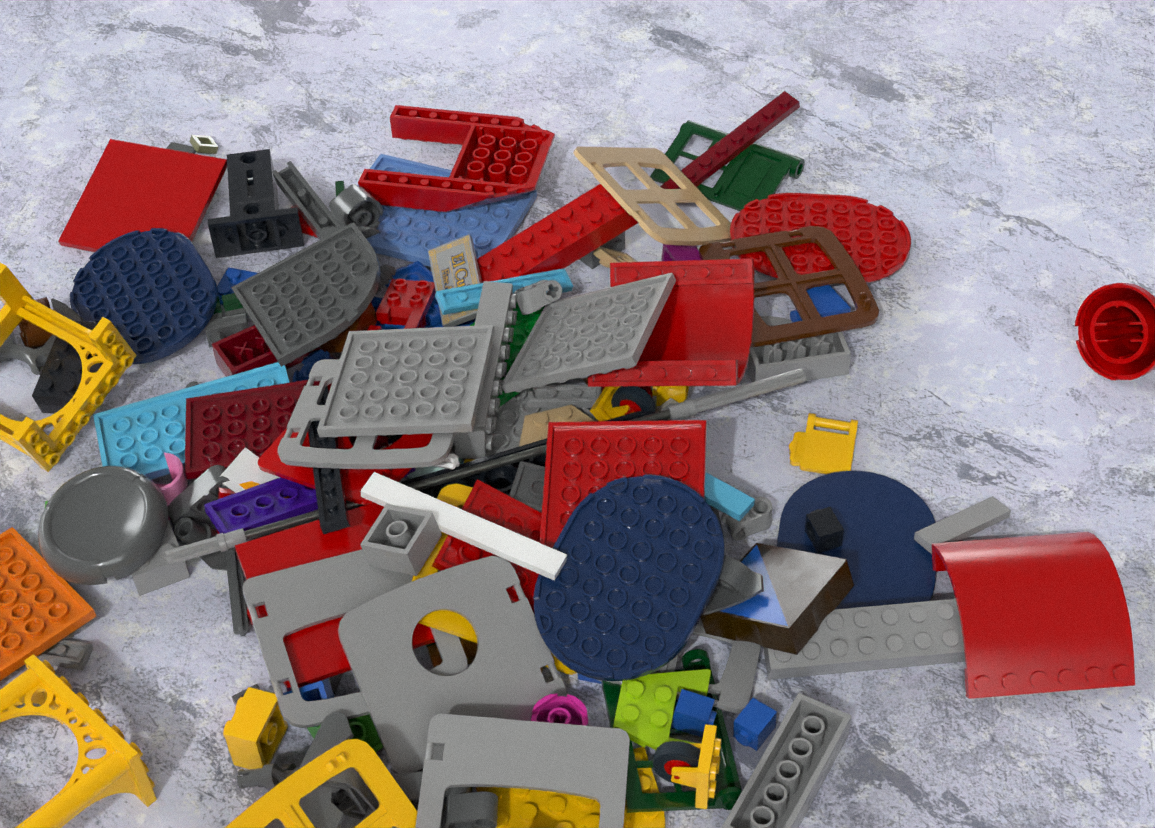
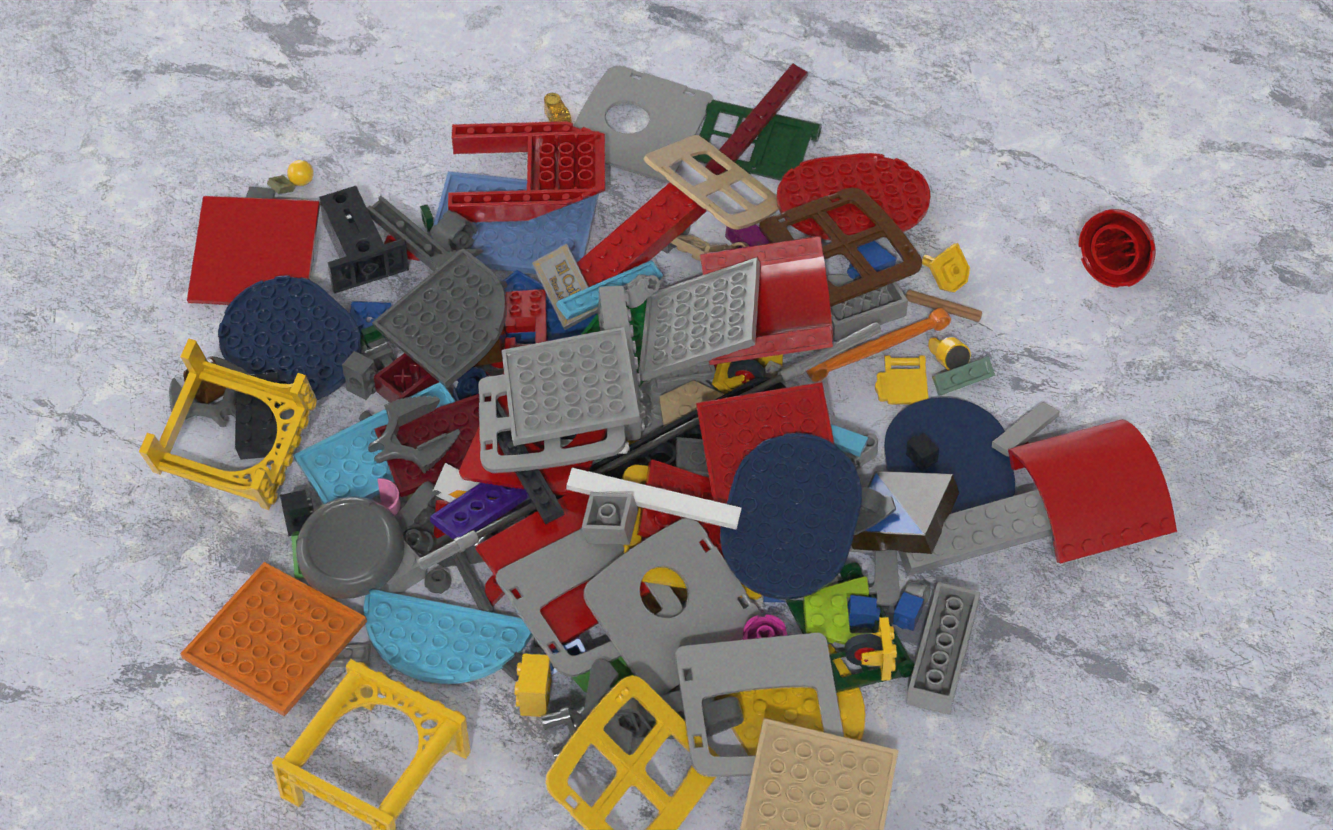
camera: 15 degrees left, 5 degrees up
(62, 467) = (296, 510): none -> black brick
(171, 652) = (441, 639): none -> medium azure plate
(198, 340) = (359, 375): none -> dark grey brick
(199, 583) = (437, 586): none -> dark grey plate
(226, 134) = (300, 172): none -> yellow piece
(230, 433) = (400, 413): none -> dark grey piece
(517, 106) = (555, 108): none -> clear yellow piece
(638, 123) = (670, 113): none -> light grey door
(776, 701) = (919, 591): none -> light grey piece
(805, 400) = (938, 319): none -> orange piece
(890, 422) = (949, 352): none -> piece
(896, 369) = (950, 307): none -> medium nougat axle
(899, 450) = (963, 375): none -> sand green plate
(912, 328) = (949, 268): none -> yellow piece

